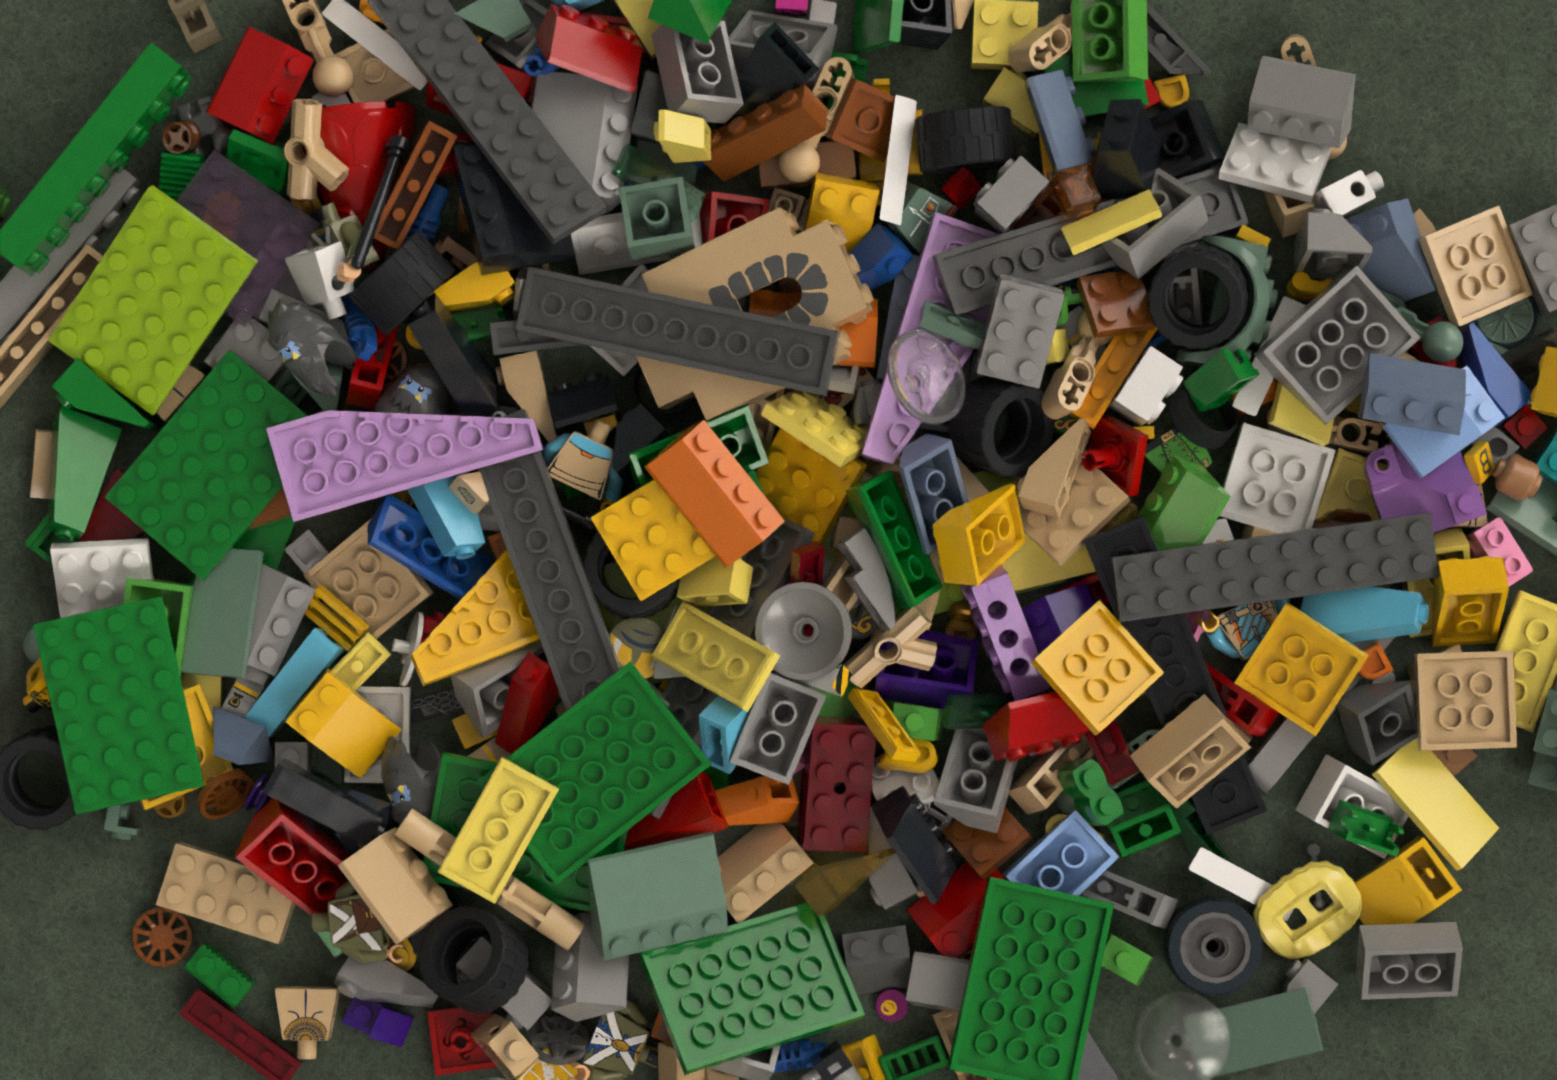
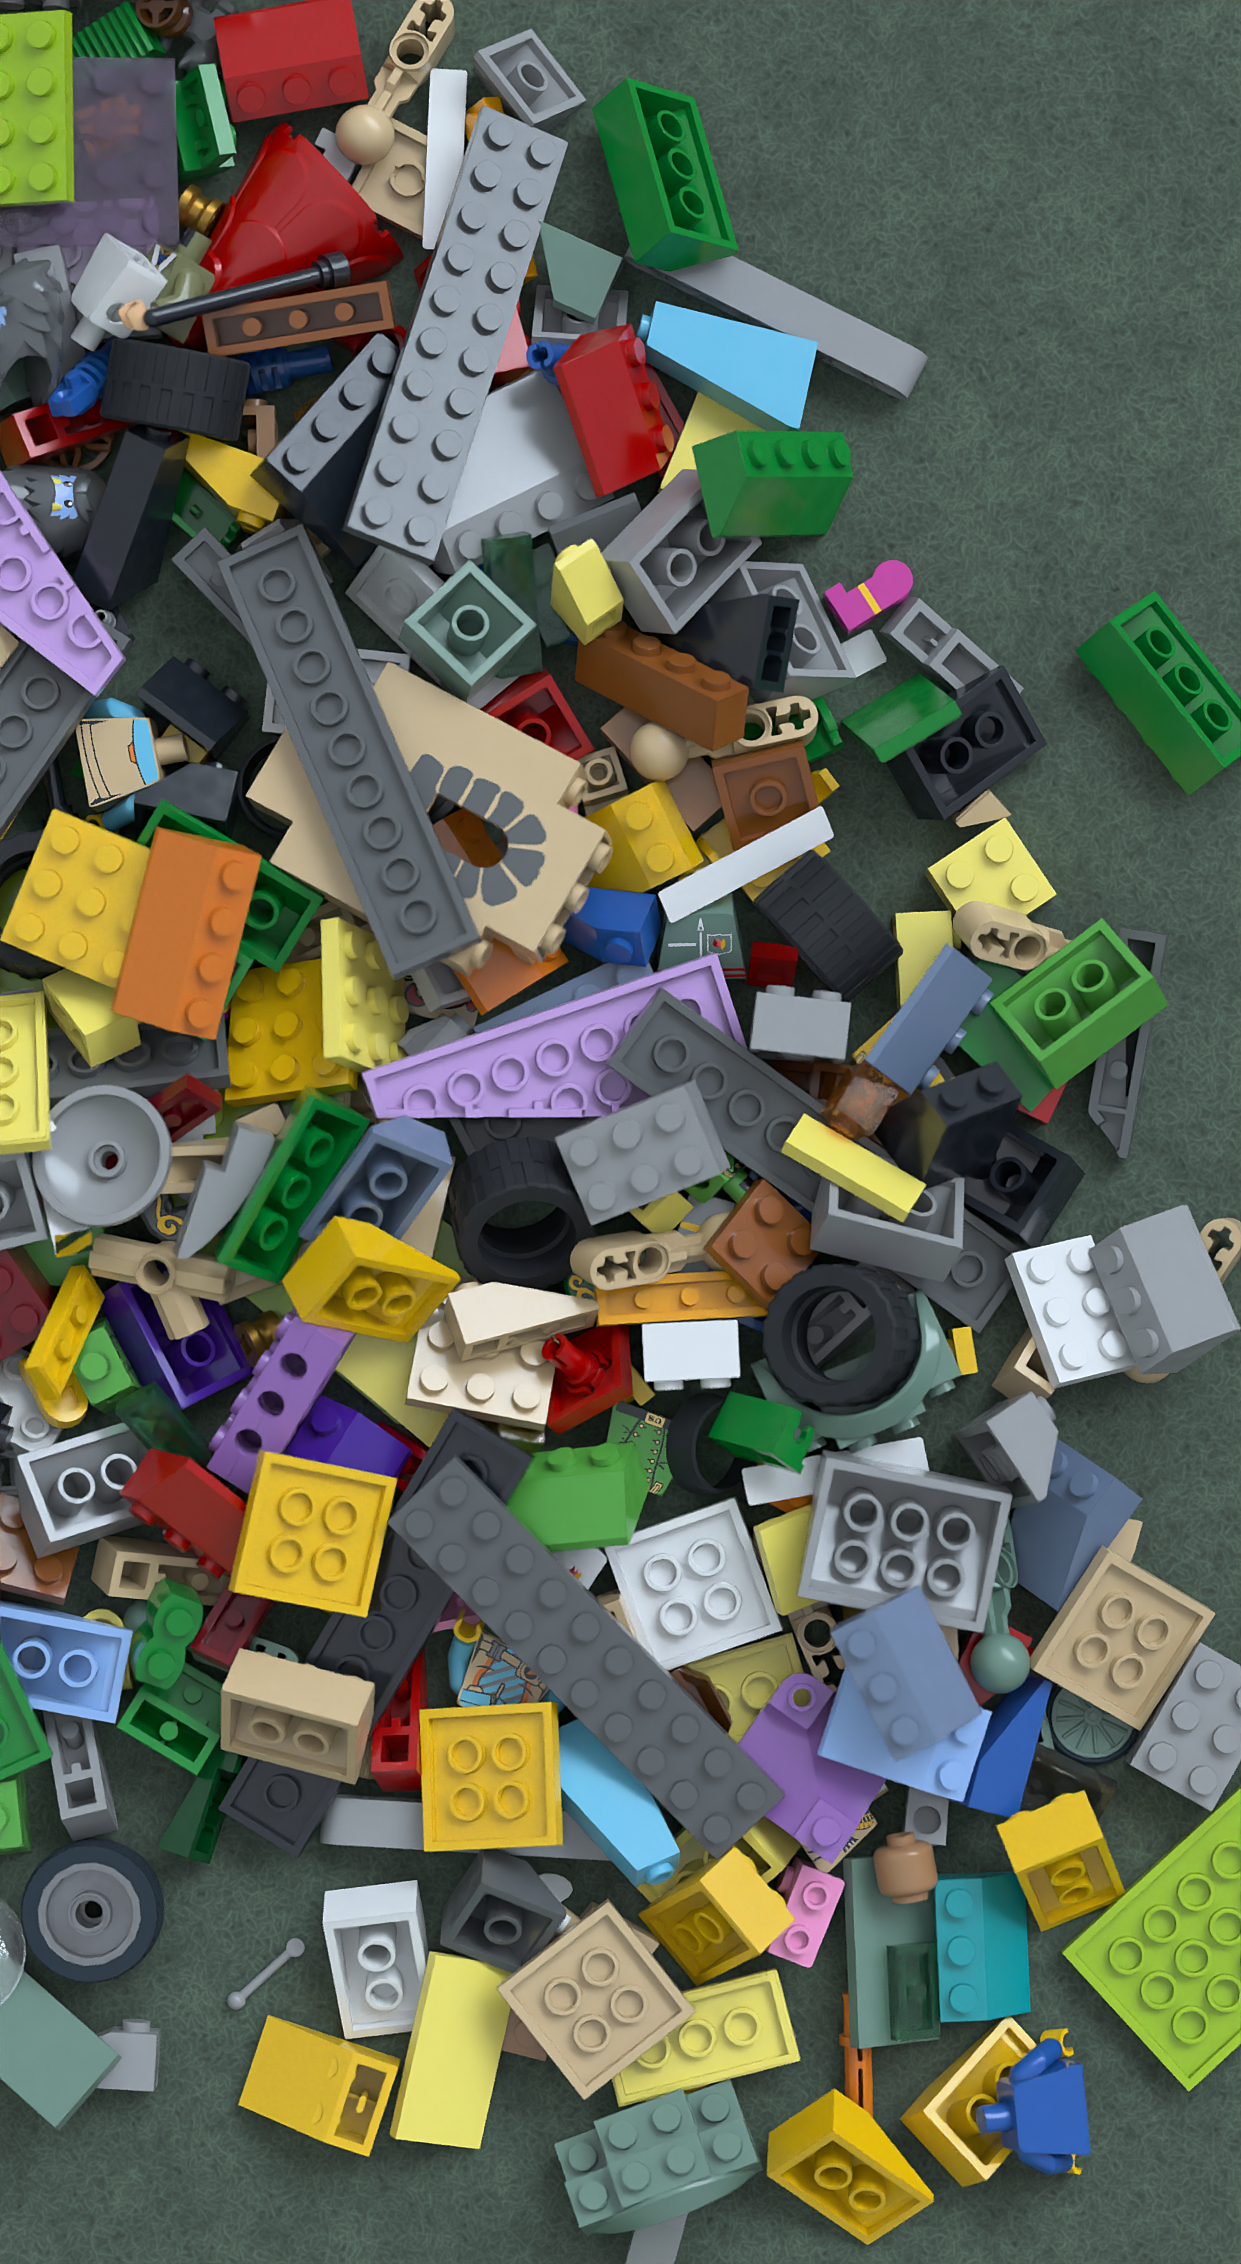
camera: 50 degrees right, 0 degrees up
(319, 162) = (247, 170): tan piece -> none
(526, 384) = (166, 629): tan slope -> none
(926, 376) = (506, 1081): clear dish -> none
(960, 328) = (596, 1082): sand green plate -> none
(1172, 90) = (1071, 1130): yellow tile -> none
(1230, 877) = (190, 1893): white sticker -> none
(1303, 288) = (948, 1453): yellow plate -> none
(1320, 926) = (209, 2021): light yellow piece -> none
(1349, 193) = (1081, 1417): white torso -> none
(1365, 827) = (359, 1989): green hinge -> none
(1376, 664) = (563, 1861): orange tile -> none
(1408, 960) = (240, 2154): light grey brick -> none
(1479, 461) = (891, 1811): yellow tile -> none
(1524, 427) = (976, 1834): red plate -> none

